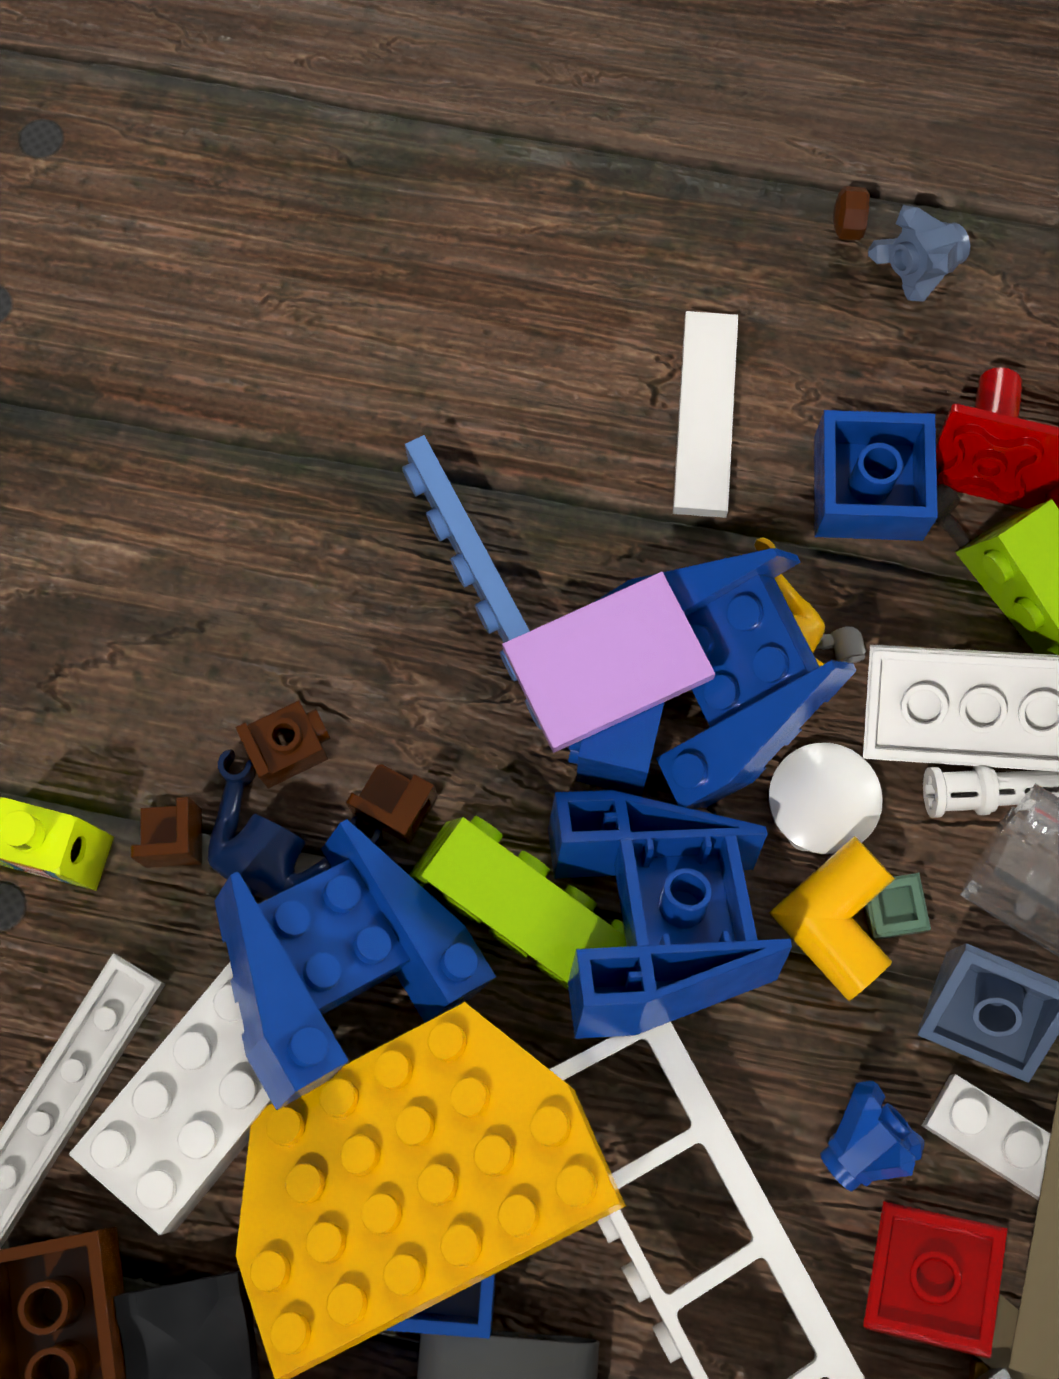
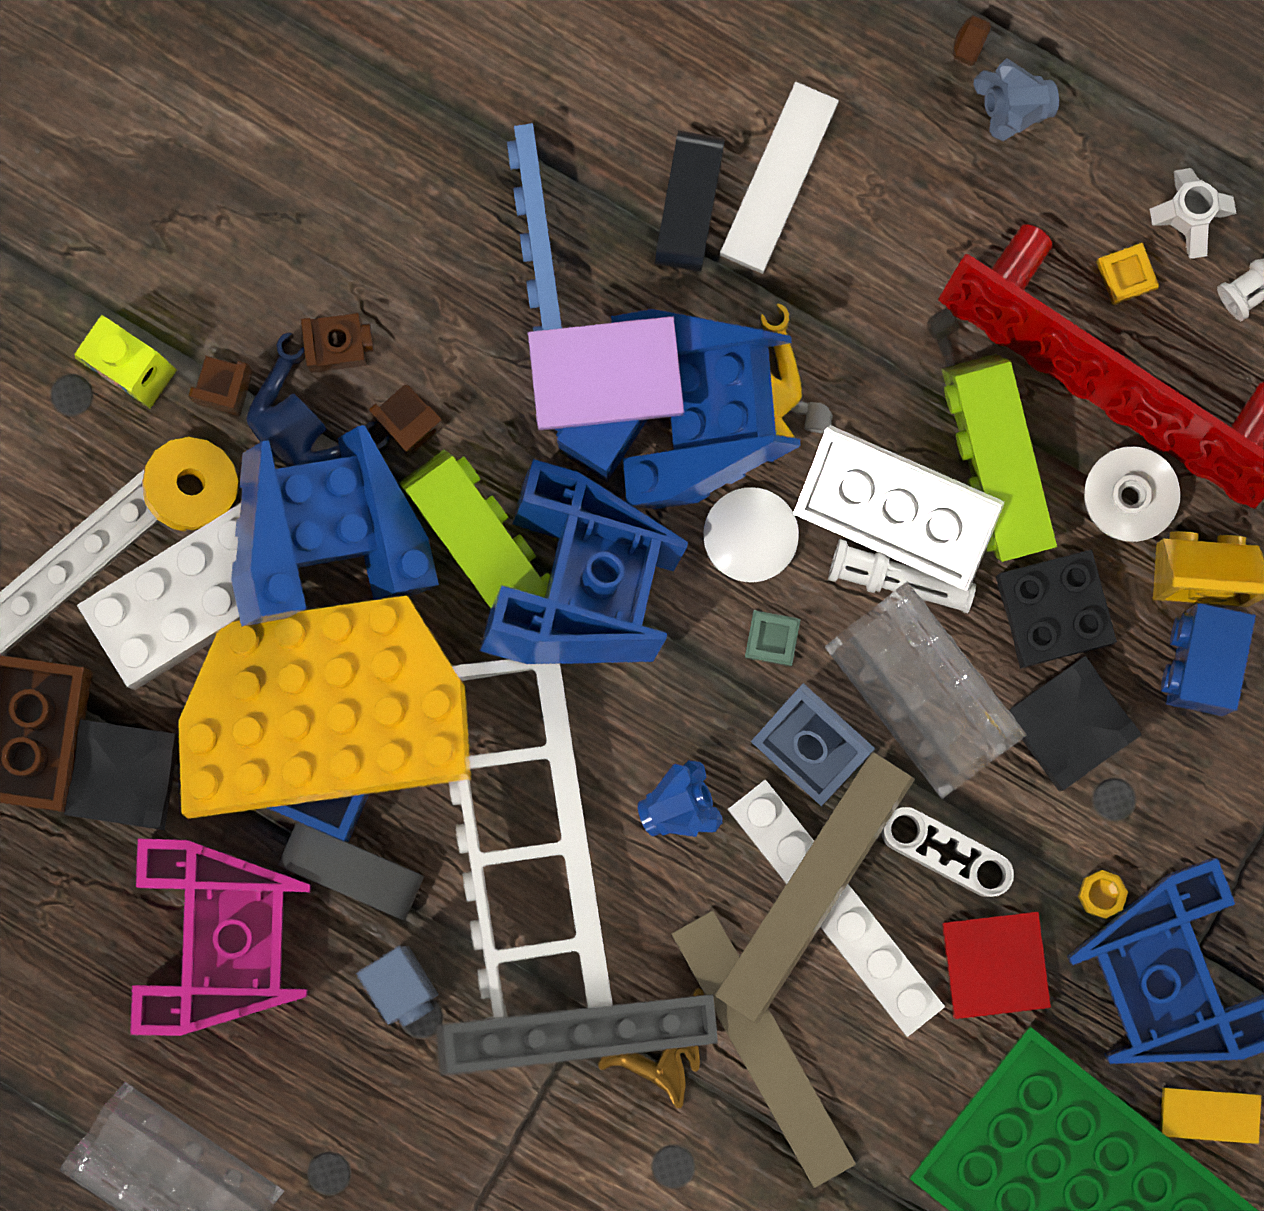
camera: 20 degrees right, 10 degrees up
(160, 929) = (193, 458): none -> yellow tile
(621, 465) = (689, 201): none -> black beam
(822, 923) = (710, 629): yellow brick -> none
(875, 475) = (891, 285): blue brick -> none
(936, 1279) = (688, 918): red tile -> none

